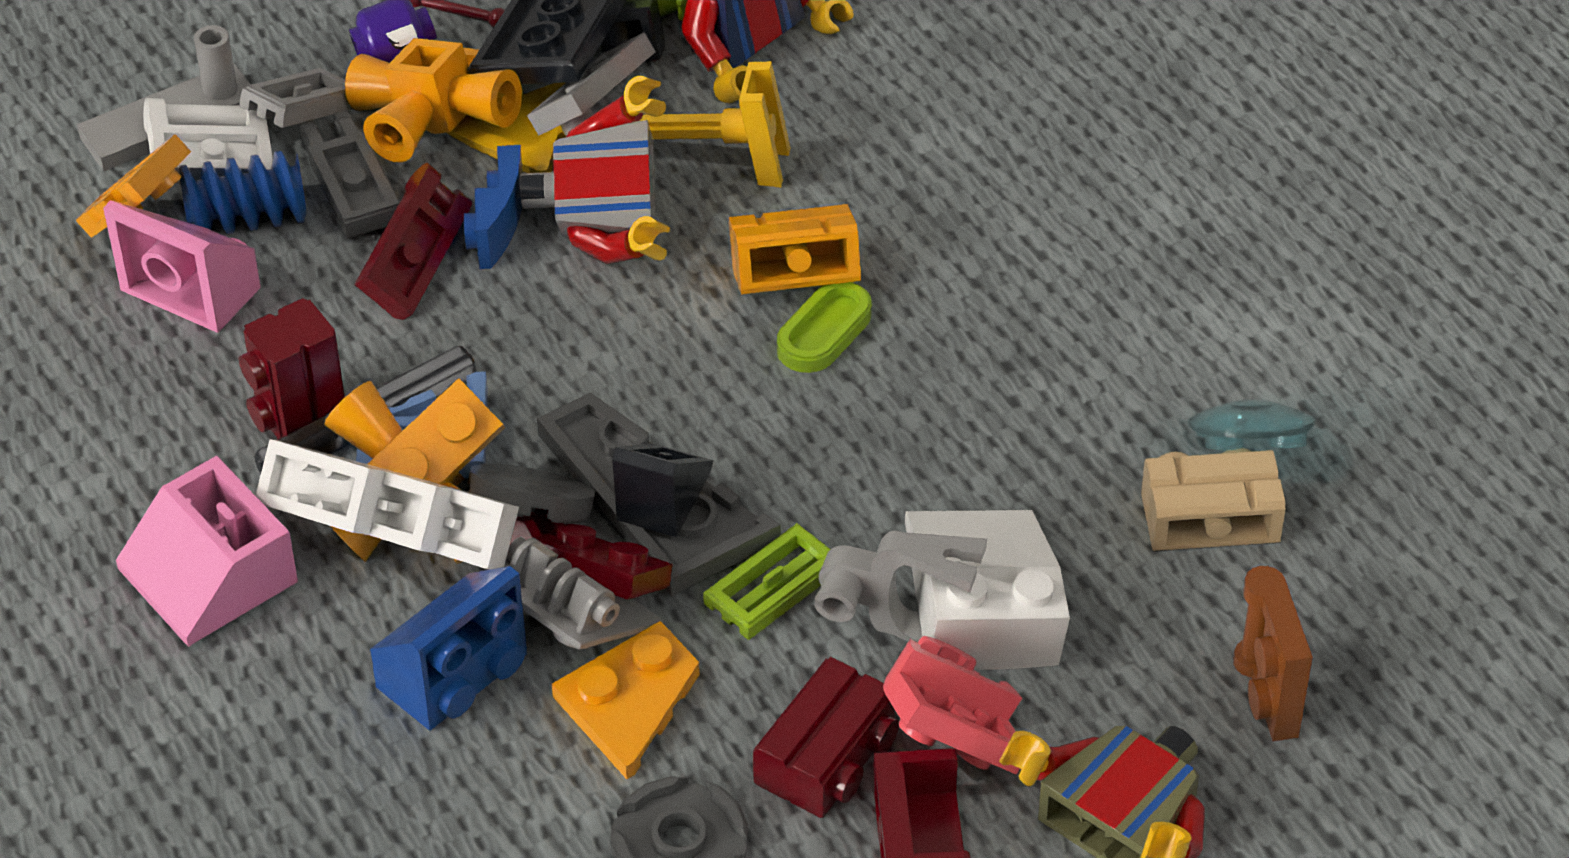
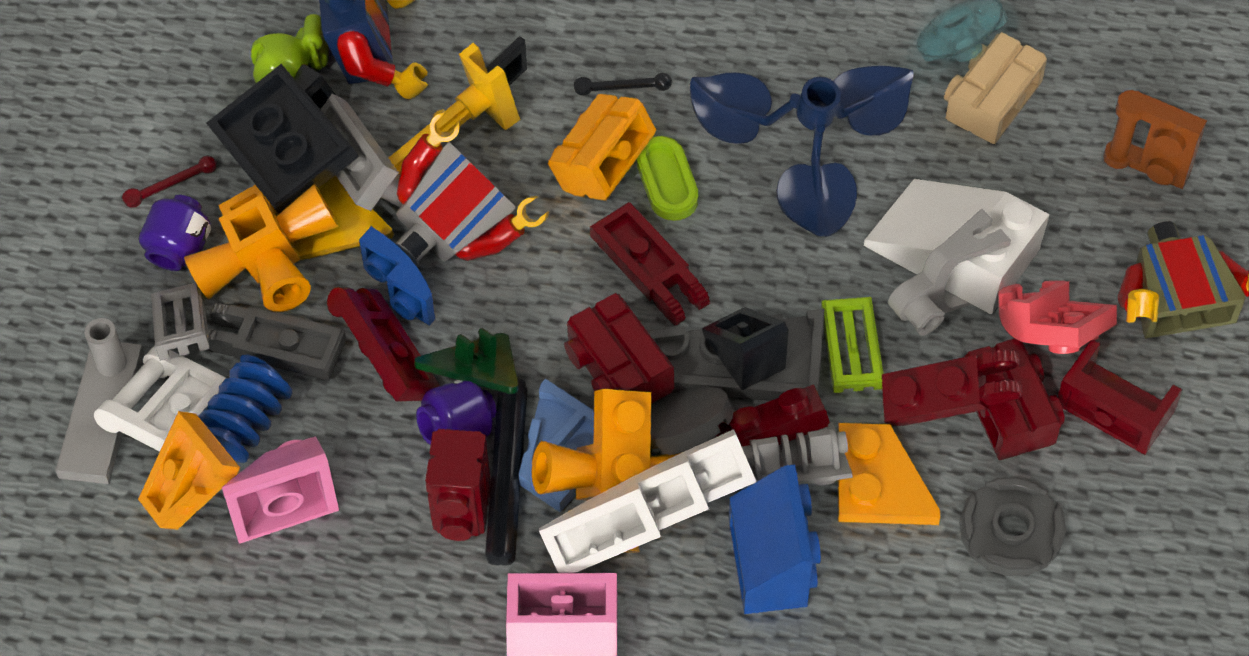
camera: 50 degrees left, 10 degrees up
(384, 336) = (456, 407): none -> dark purple head
(452, 316) = (481, 361): none -> dark green piece
(549, 395) = (618, 350): none -> dark red brick
(705, 367) = (648, 261): none -> dark red hinge
(771, 668) = (948, 388): none -> dark red hinge
(820, 132) = (511, 60): none -> black slope
(936, 254) = (584, 85): none -> black hinge
(963, 319) = (813, 195): none -> dark blue plant

